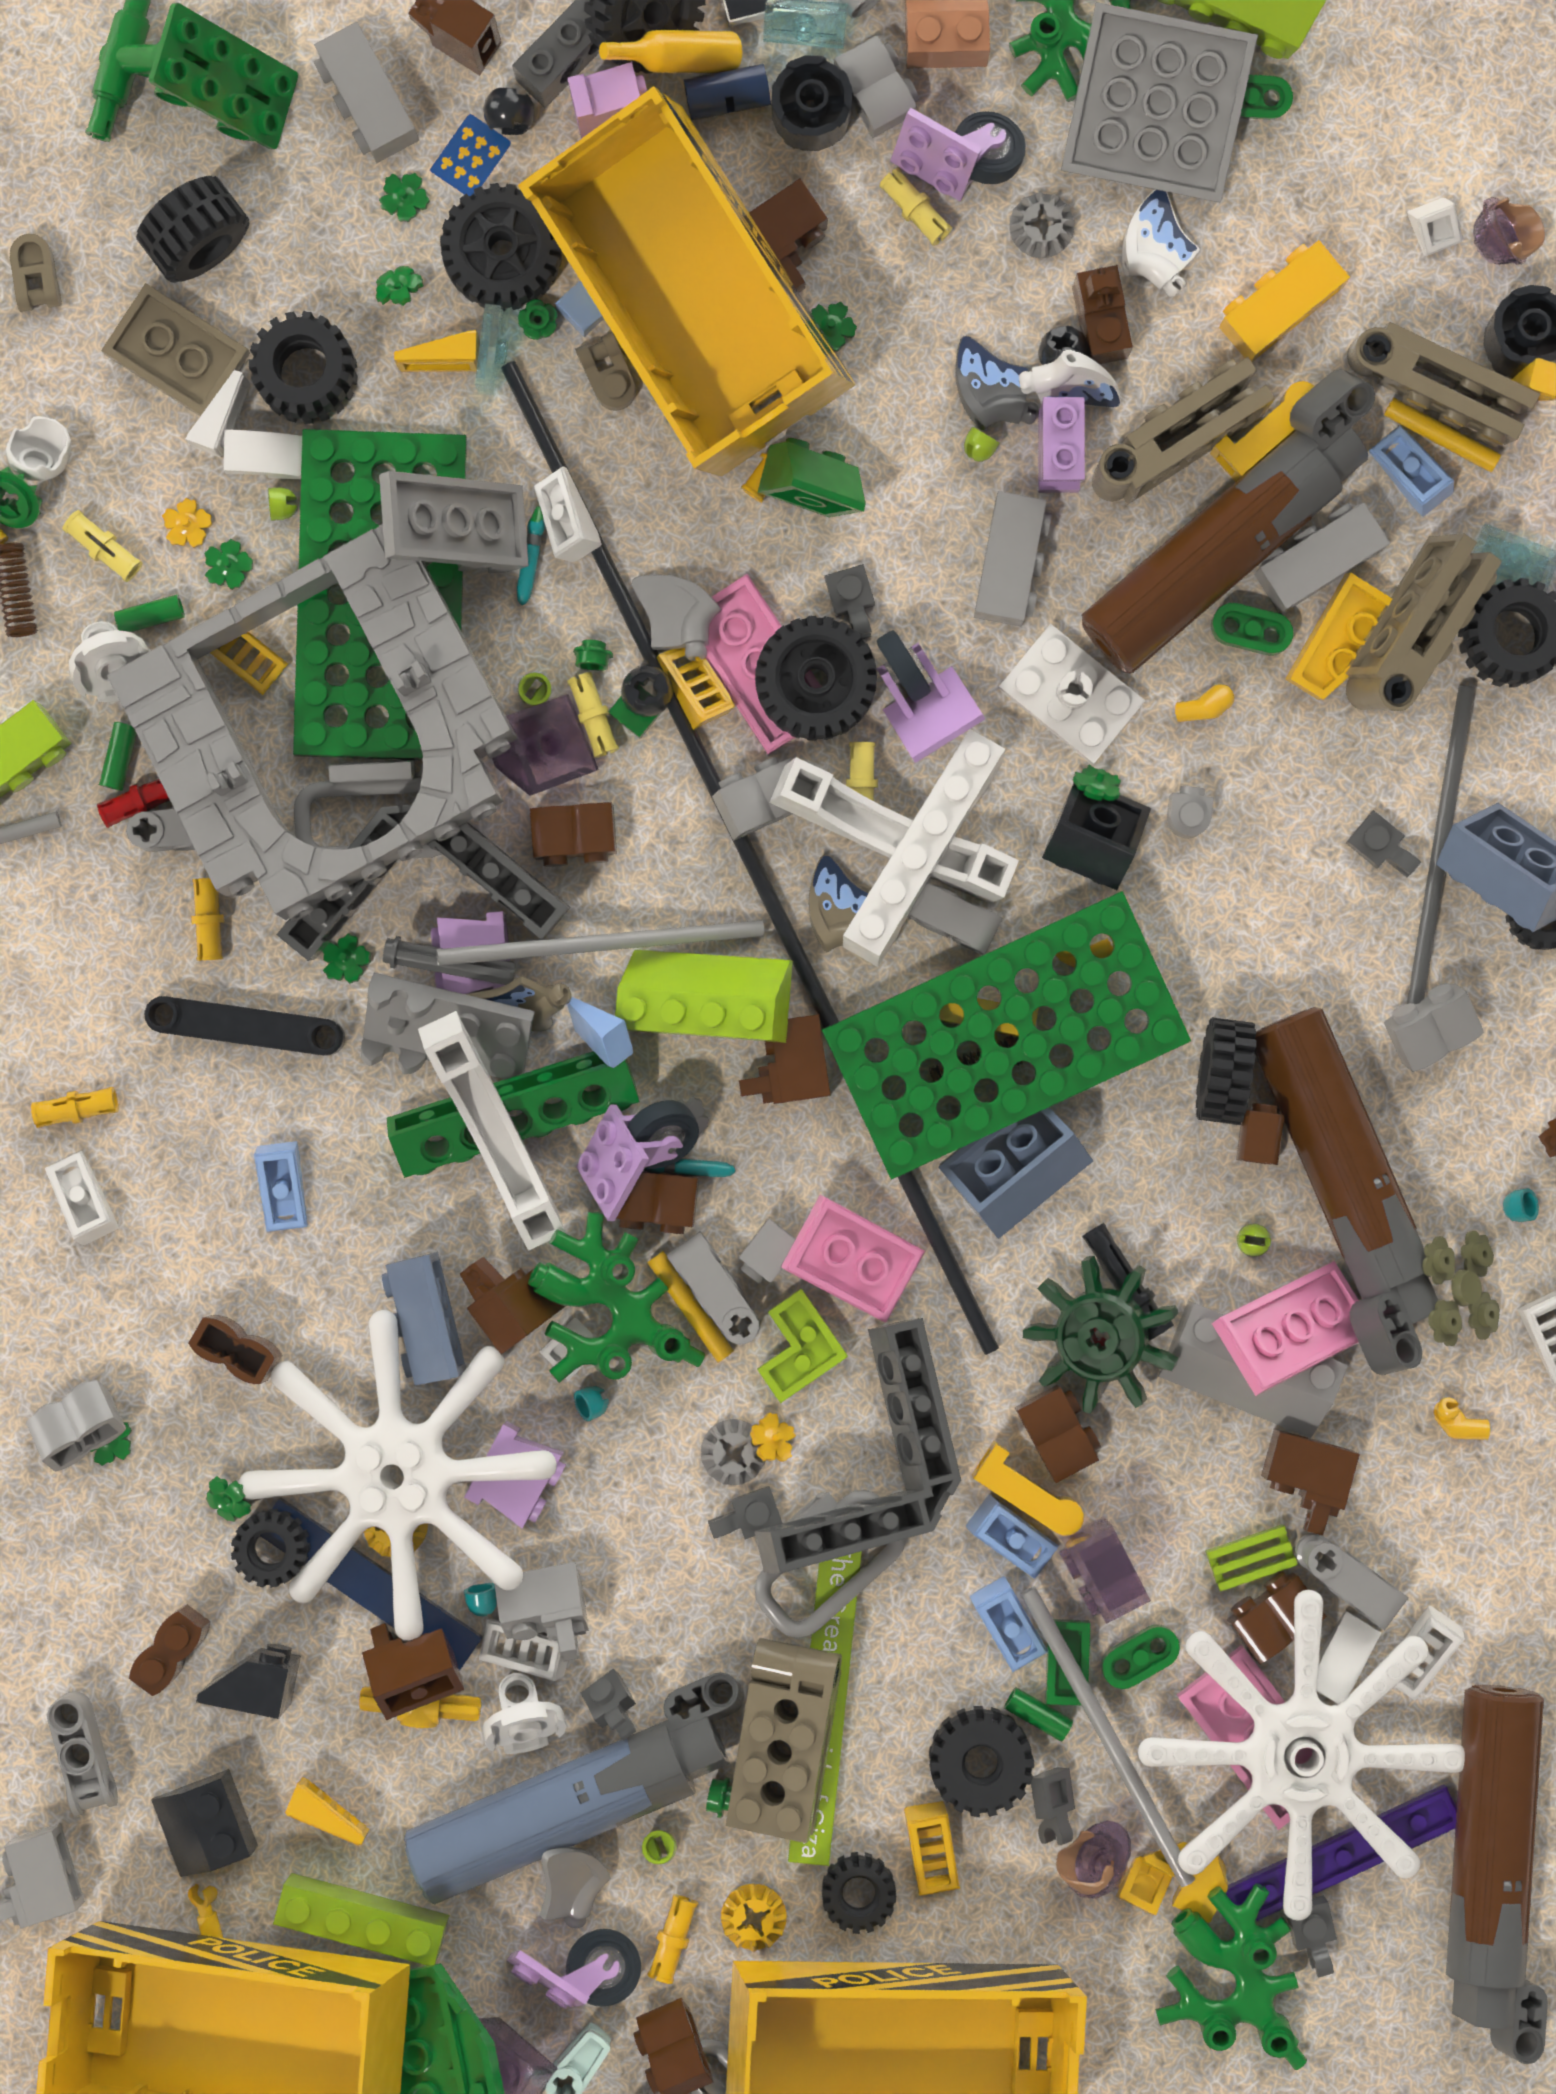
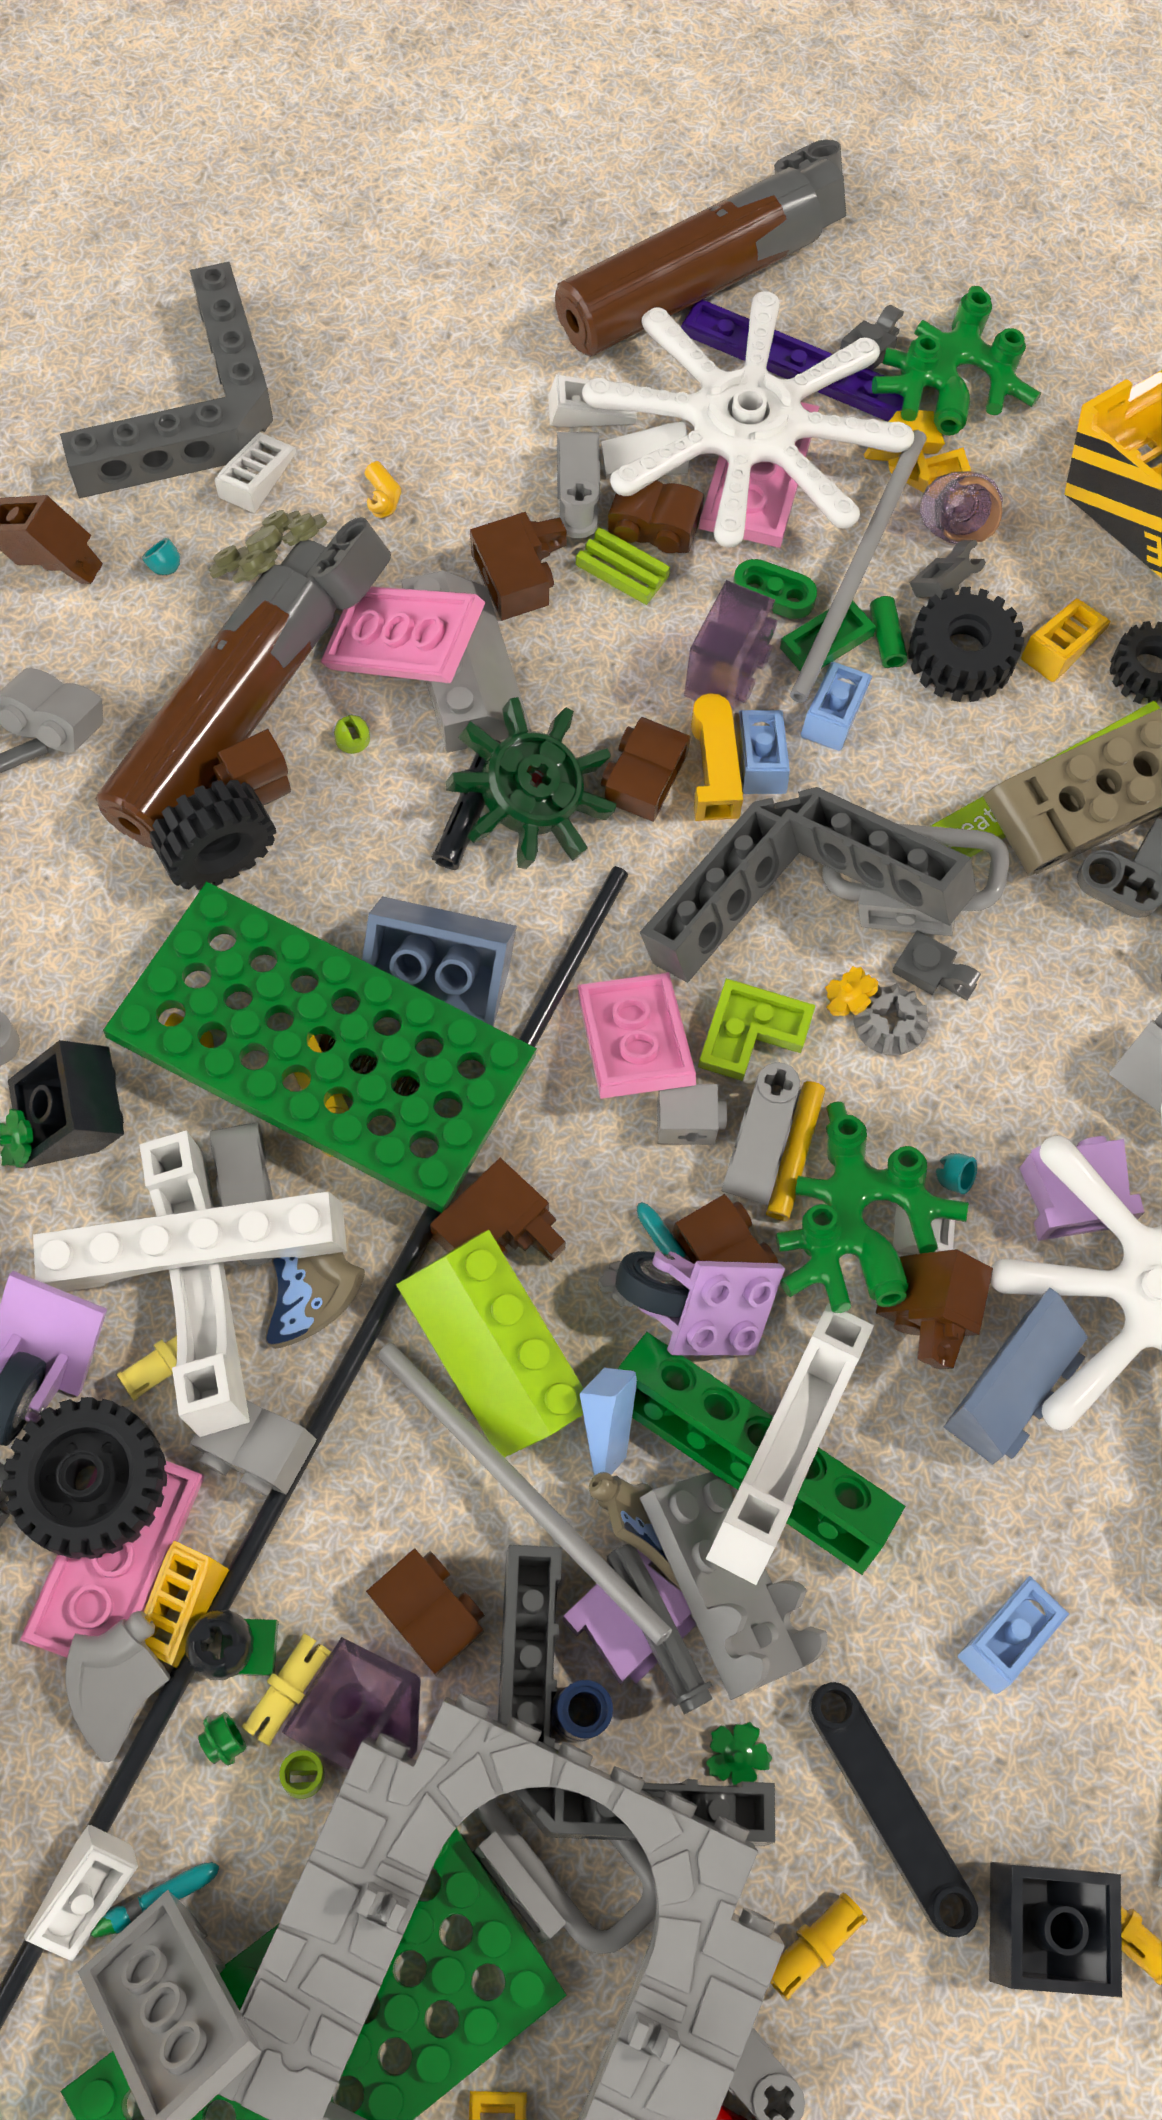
camera: 135 degrees left, 20 degrees down
(106, 1063) = (1055, 1929): none -> black slope
(423, 874) = (601, 1706): none -> dark blue pin

